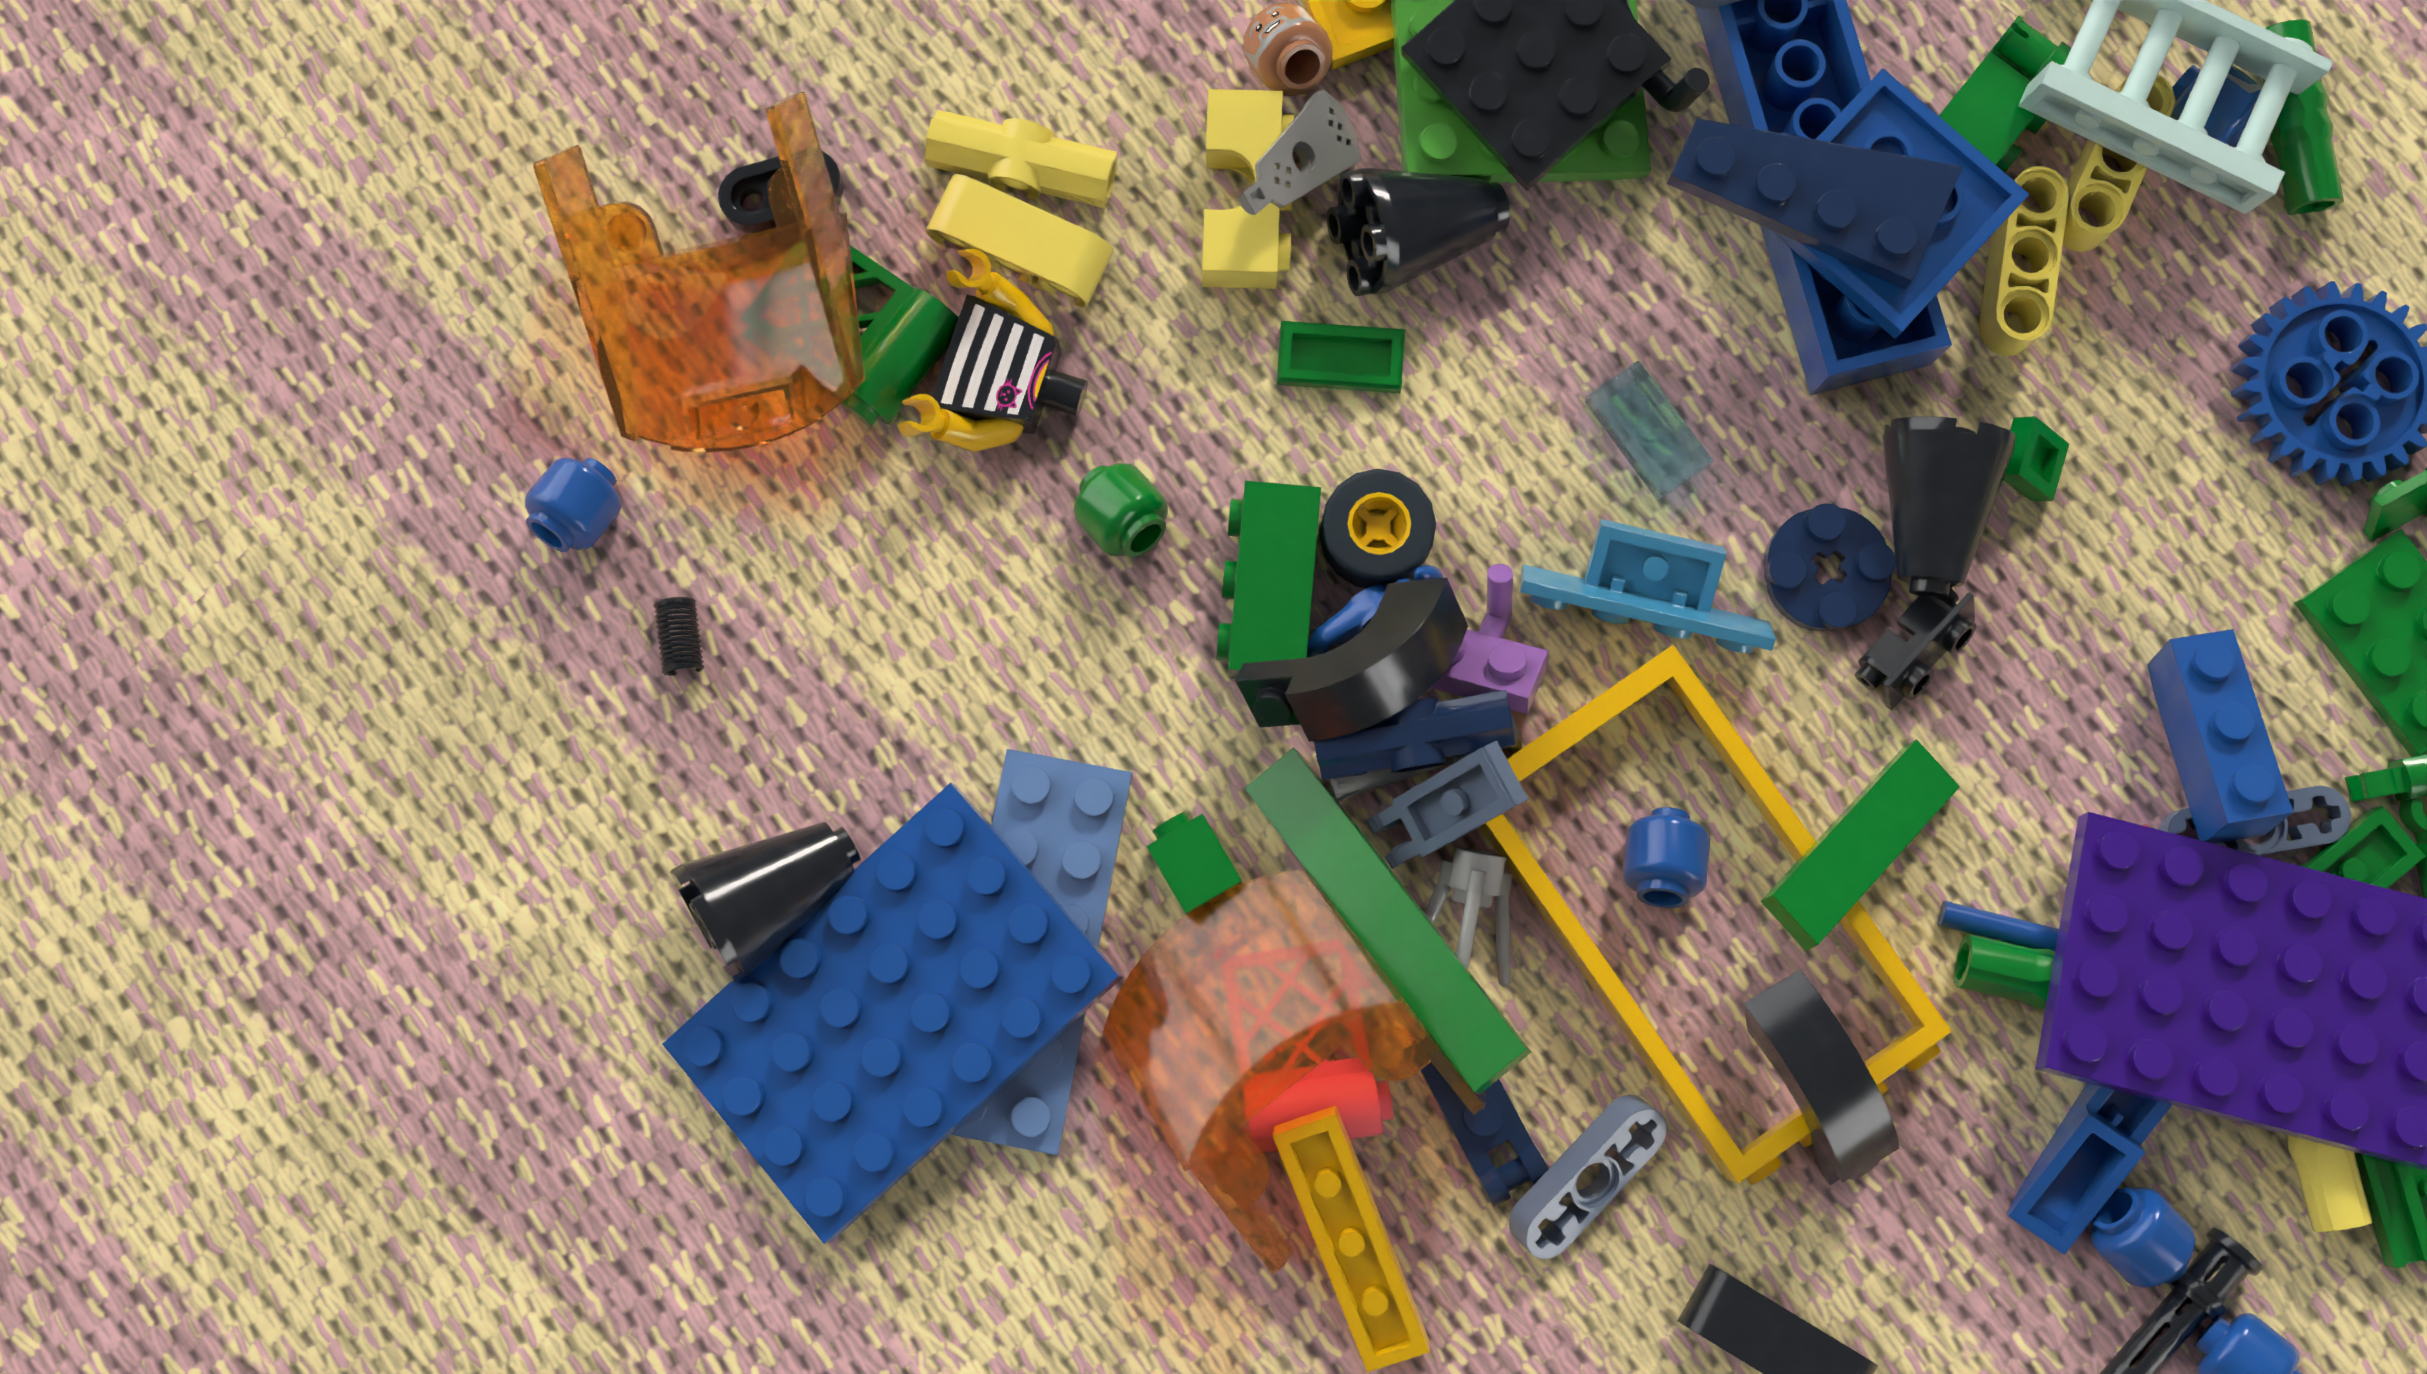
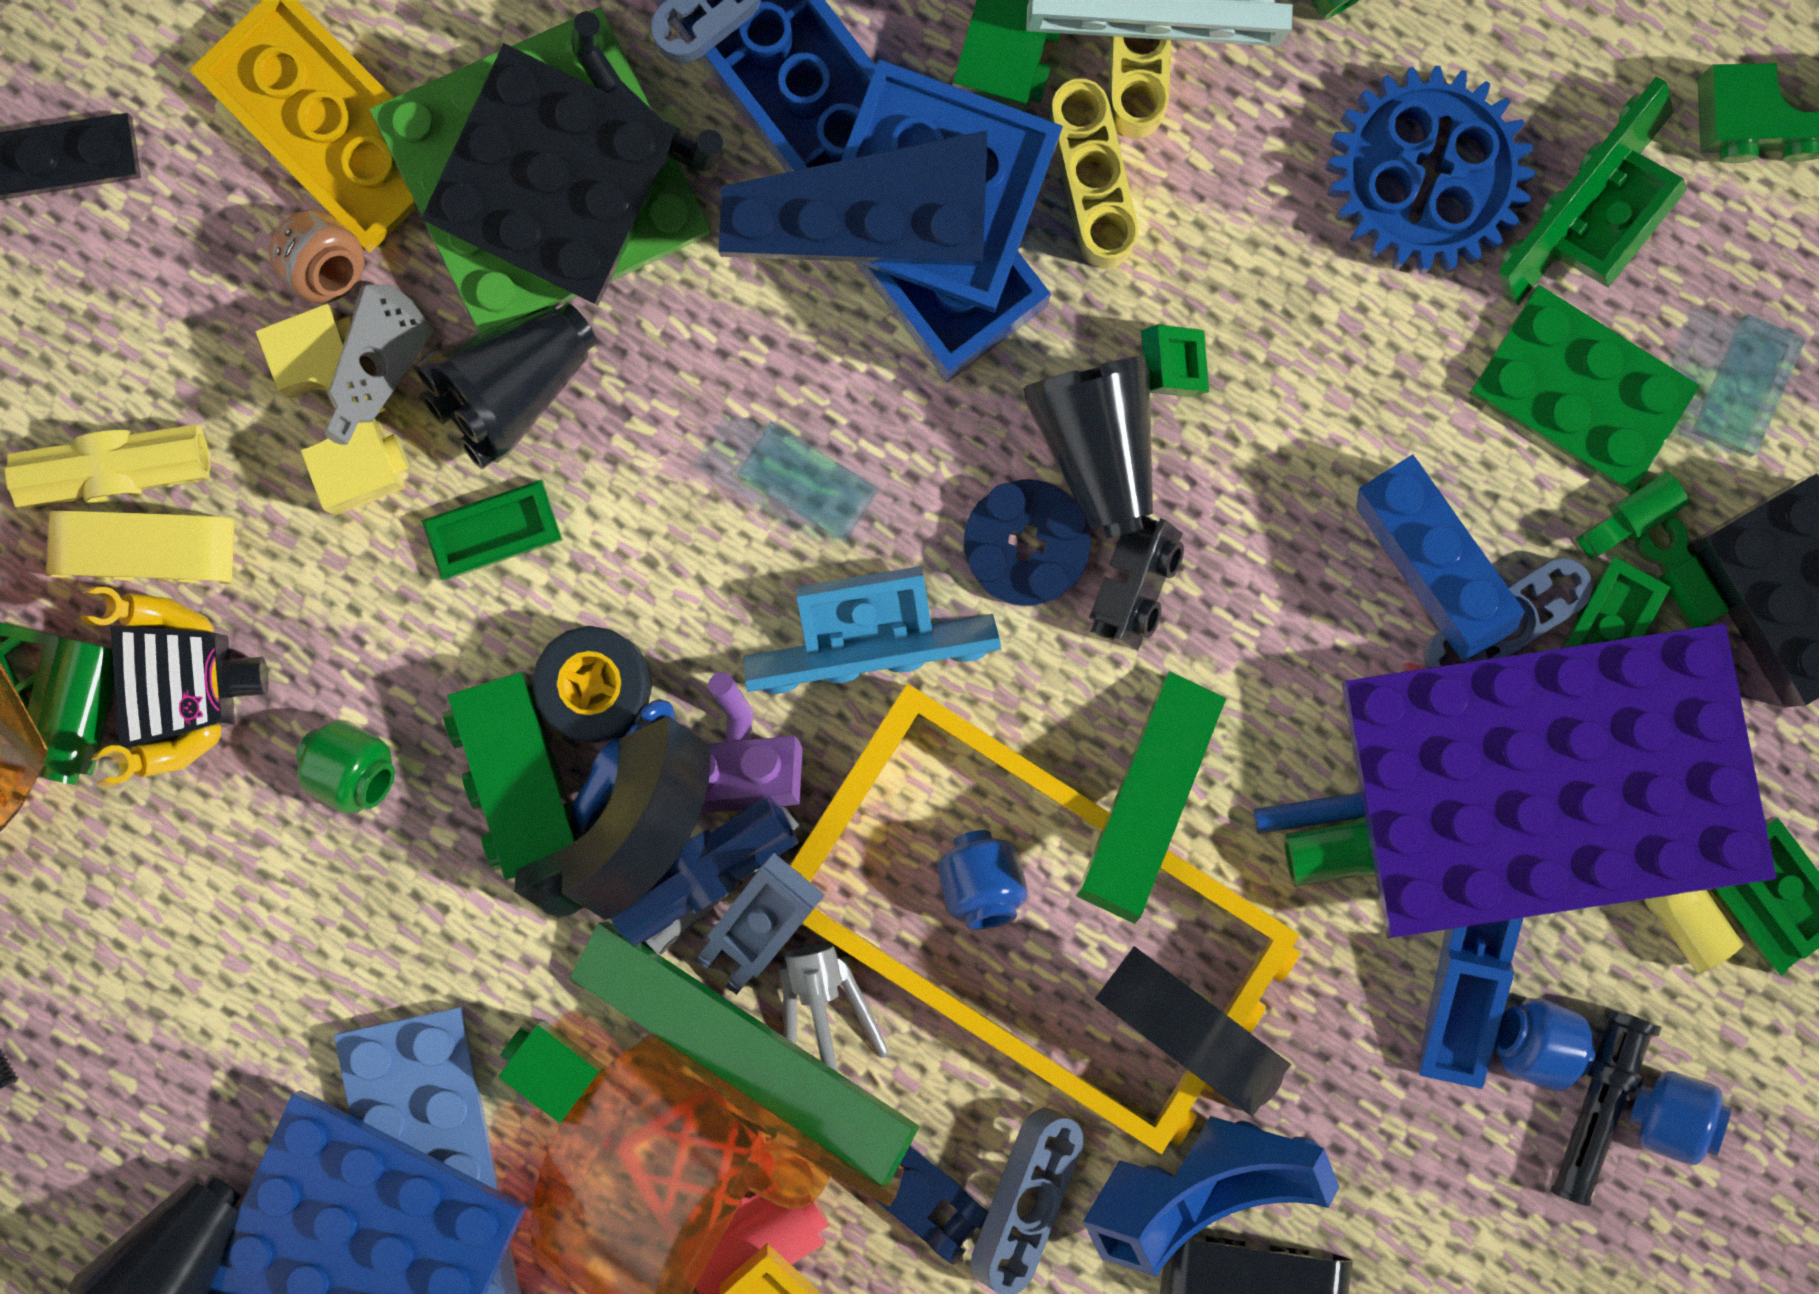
camera: 25 degrees left, 5 degrees up
(1795, 1225) = (1230, 1168): none -> blue arch

